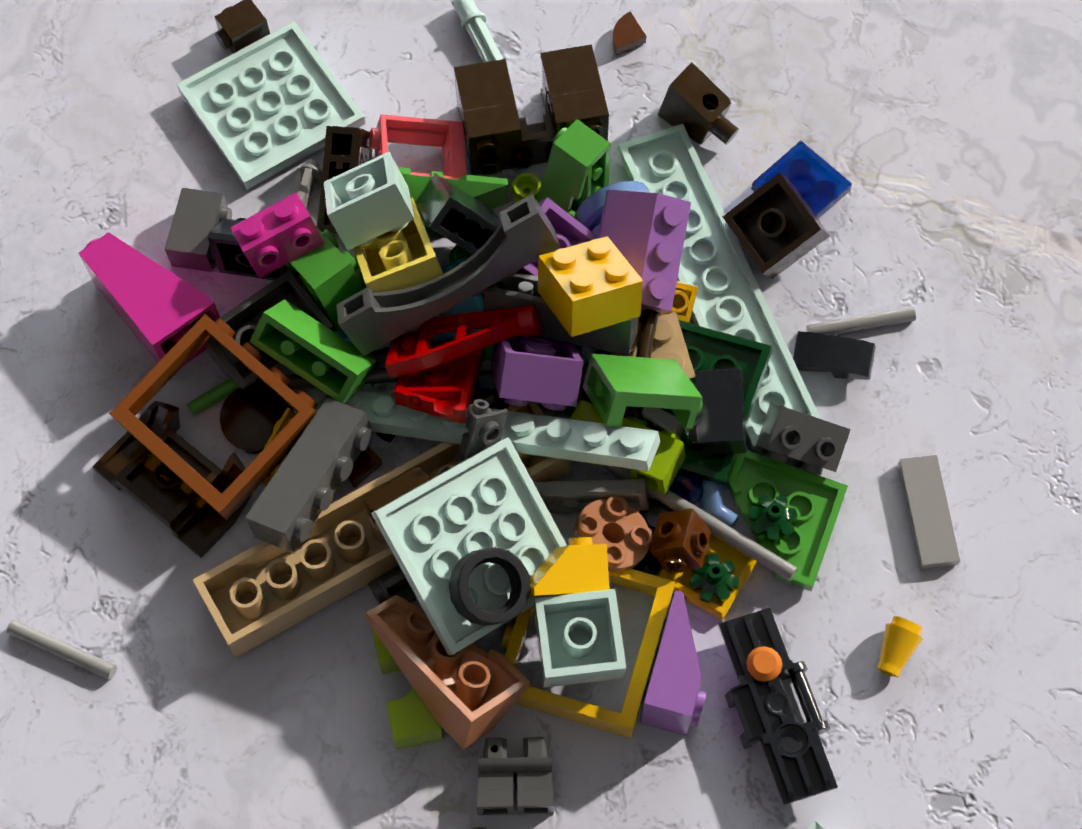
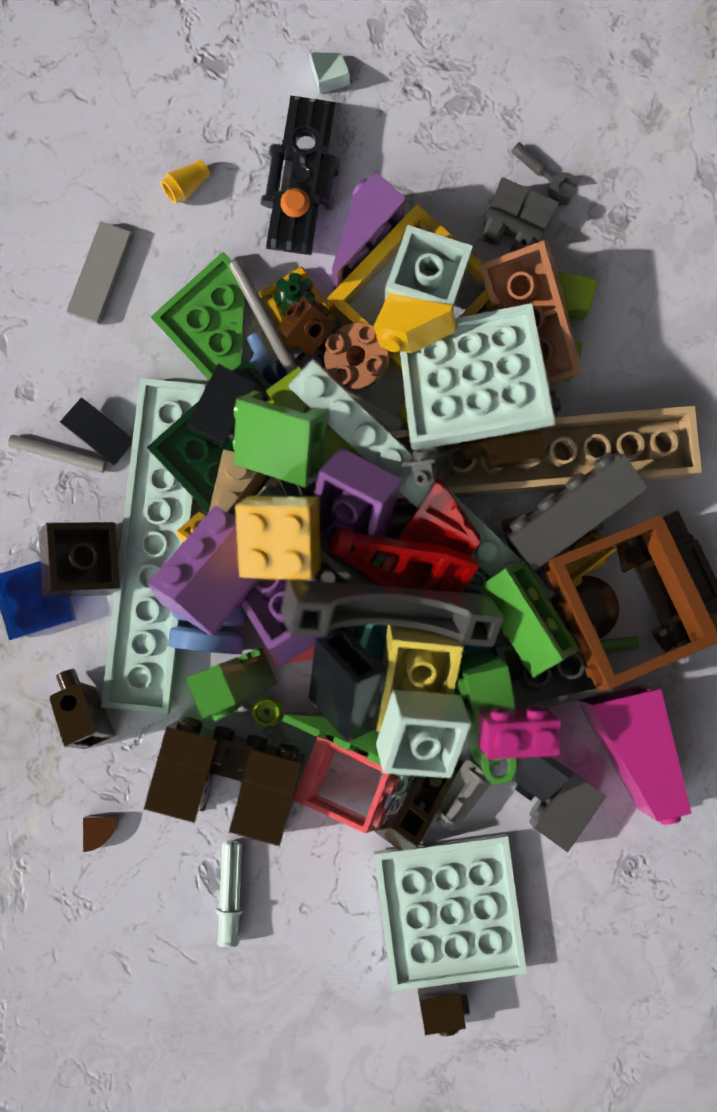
camera: 155 degrees left, 20 degrees up
(518, 580) = (477, 311): black tyre -> none
(772, 518) = (224, 316): dark green plant -> none
(802, 437) = (164, 365): dark grey brick -> none

